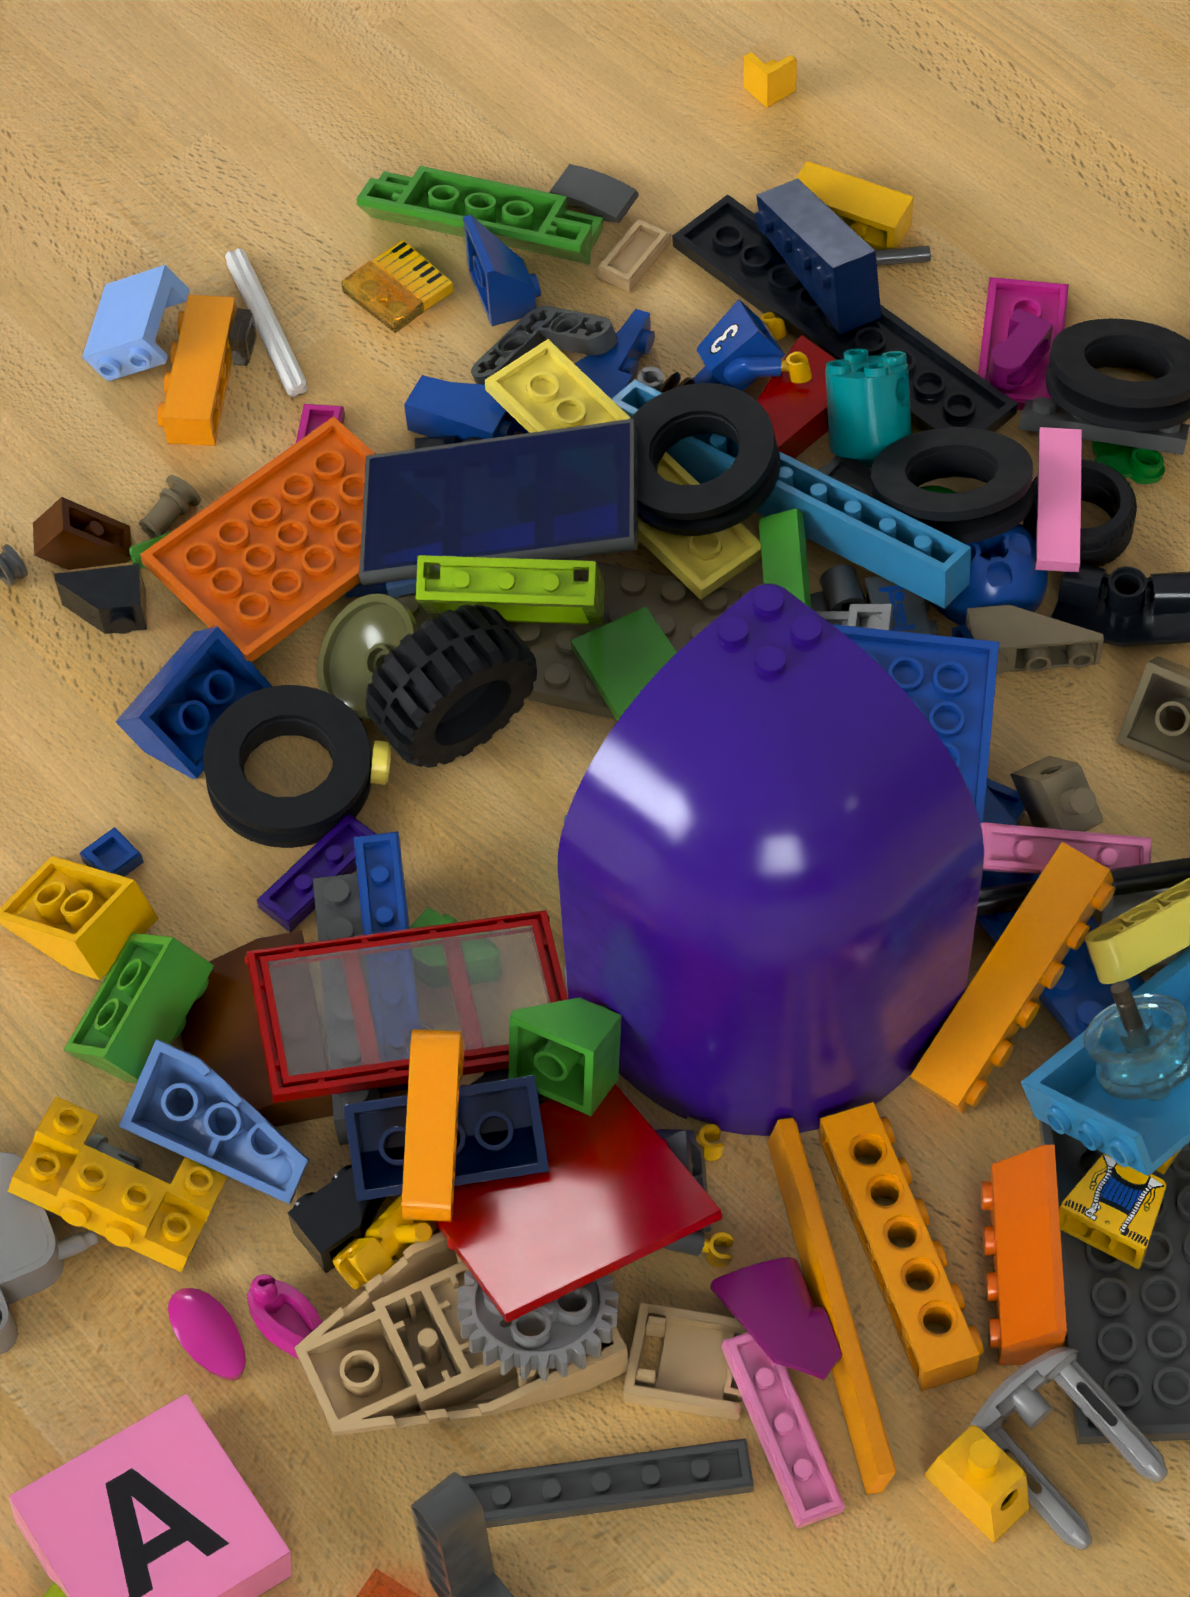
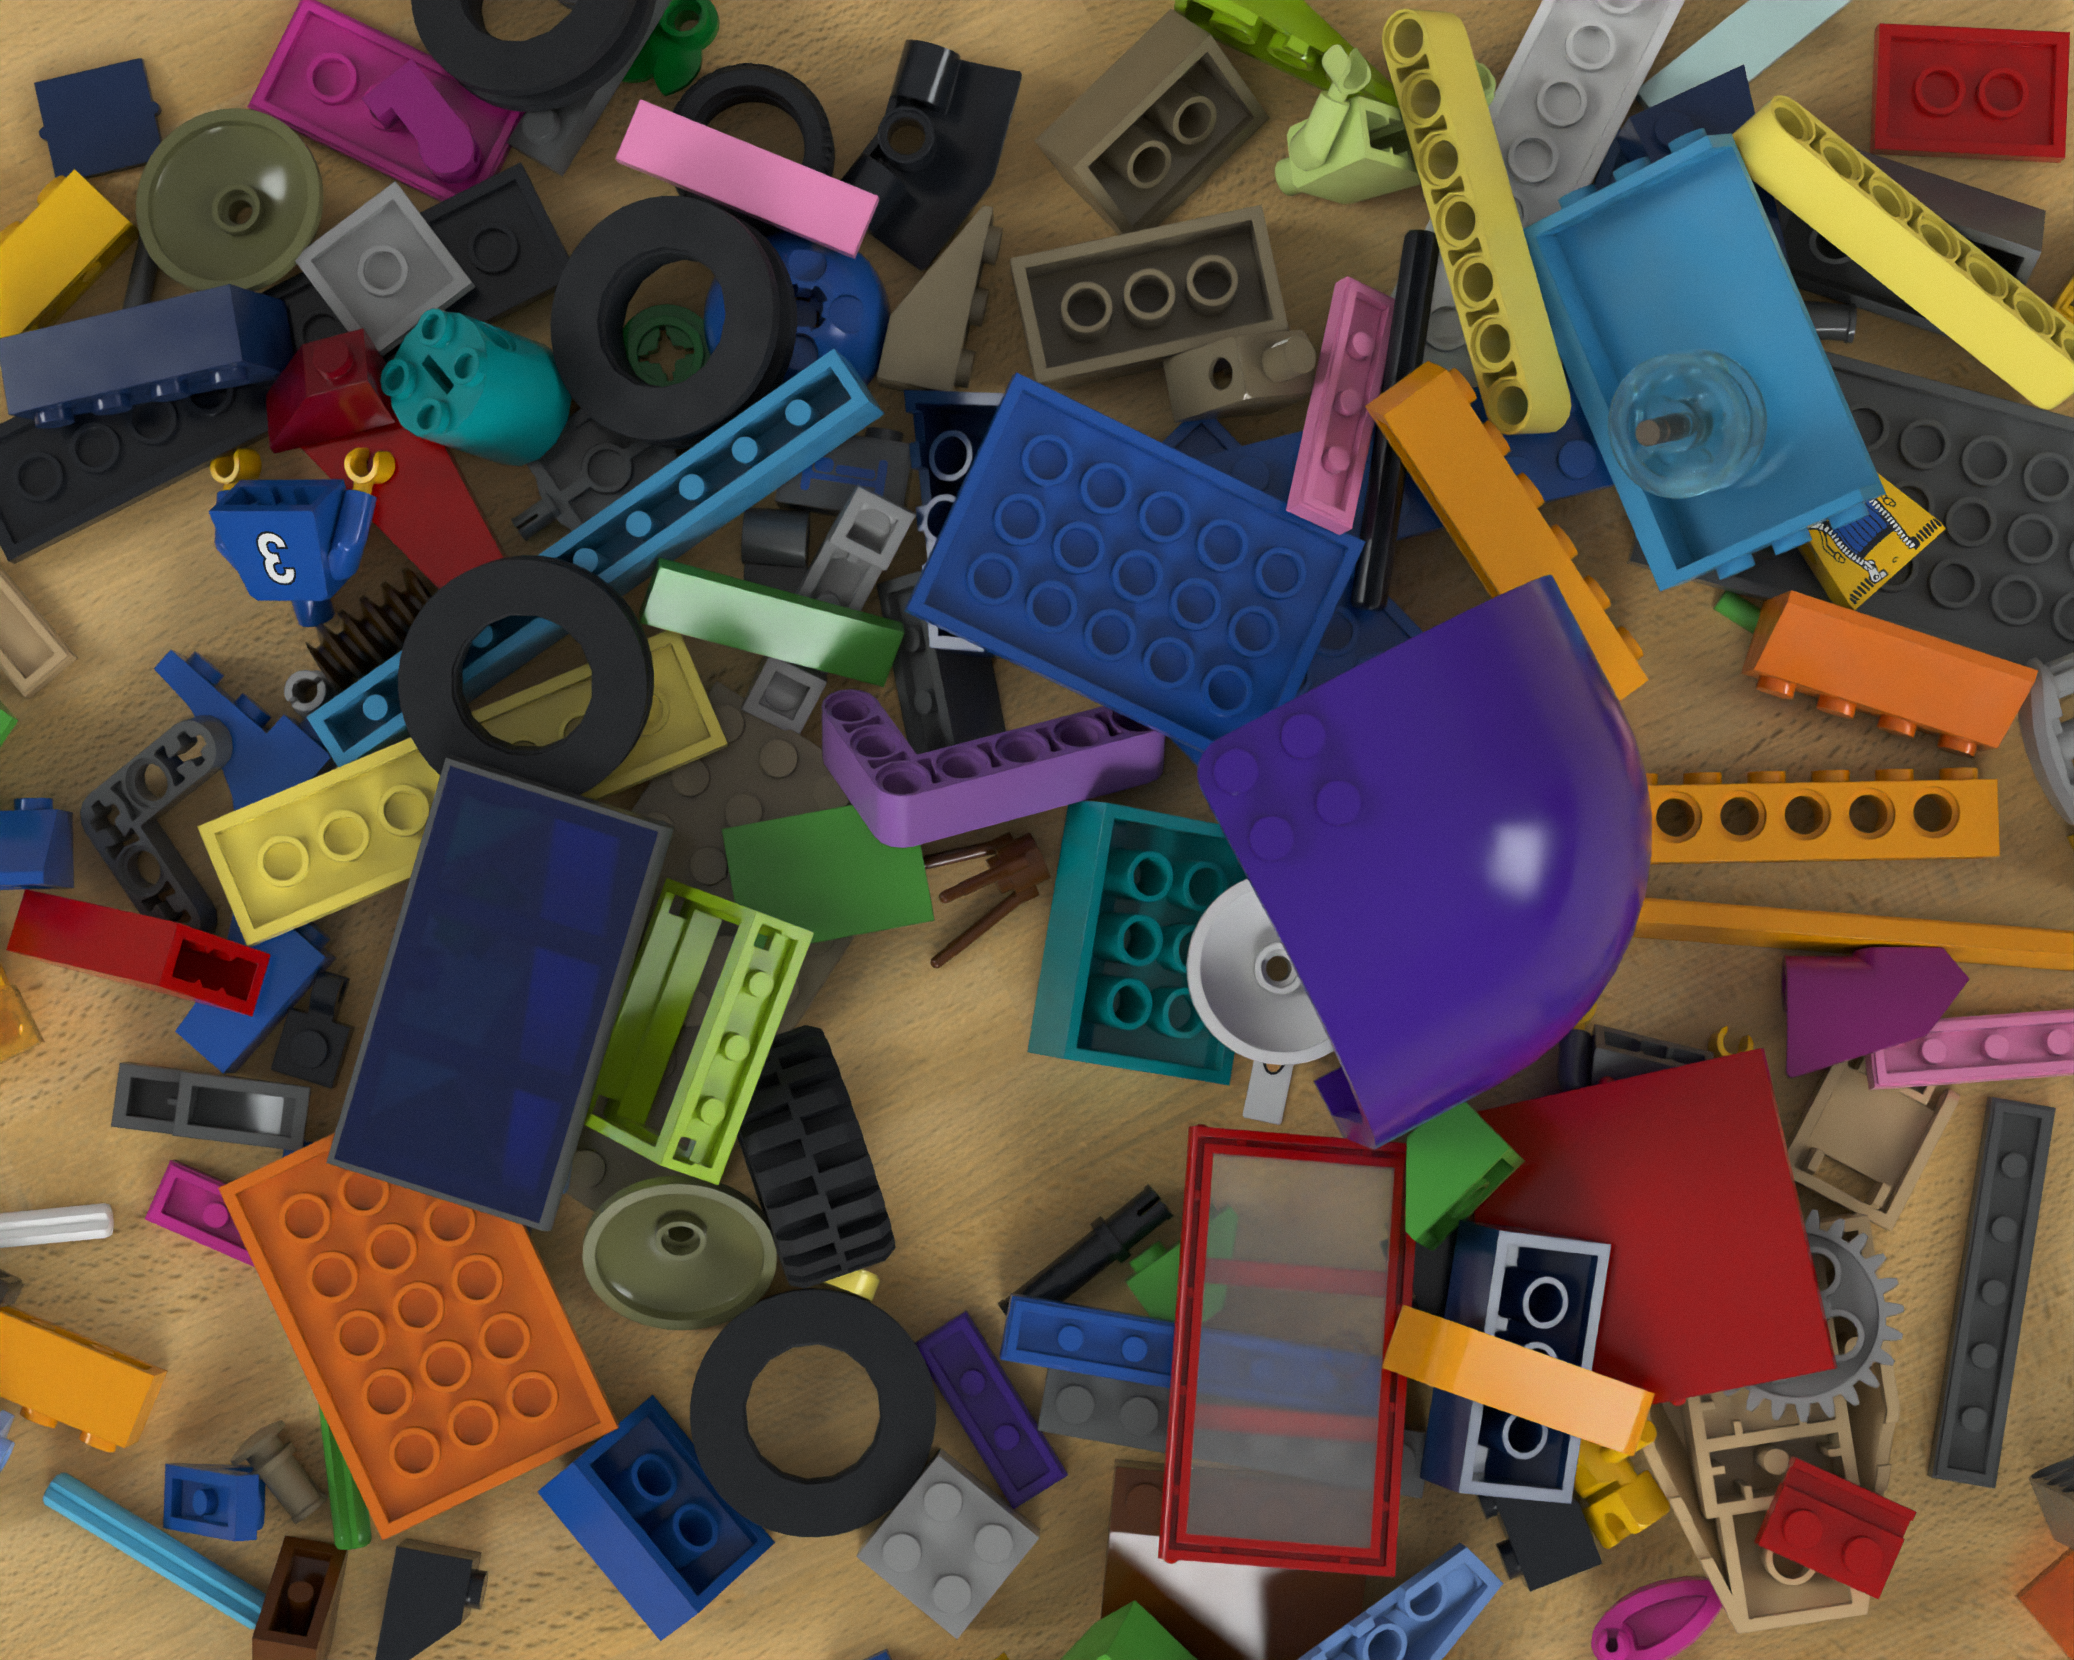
camera: 70 degrees left, 30 degrees up
(107, 454) = (155, 1549): none -> medium azure axle
(142, 485) = (214, 1500): none -> blue slope
(223, 863) = (949, 1543): none -> light grey brick
(382, 406) = (211, 1106): none -> dark grey slope
(390, 1385) = (1835, 1527): none -> red plate
(442, 896) = (1097, 1249): none -> black pin
(463, 344) = (139, 951): none -> red slope
(834, 331) = (328, 392): none -> dark red slope
(929, 271) = (203, 181): none -> olive dish
(930, 345) = (384, 269): none -> light grey plate
(950, 218) = (99, 119): none -> dark blue piece
(1072, 716) = (1146, 296): none -> dark tan brick

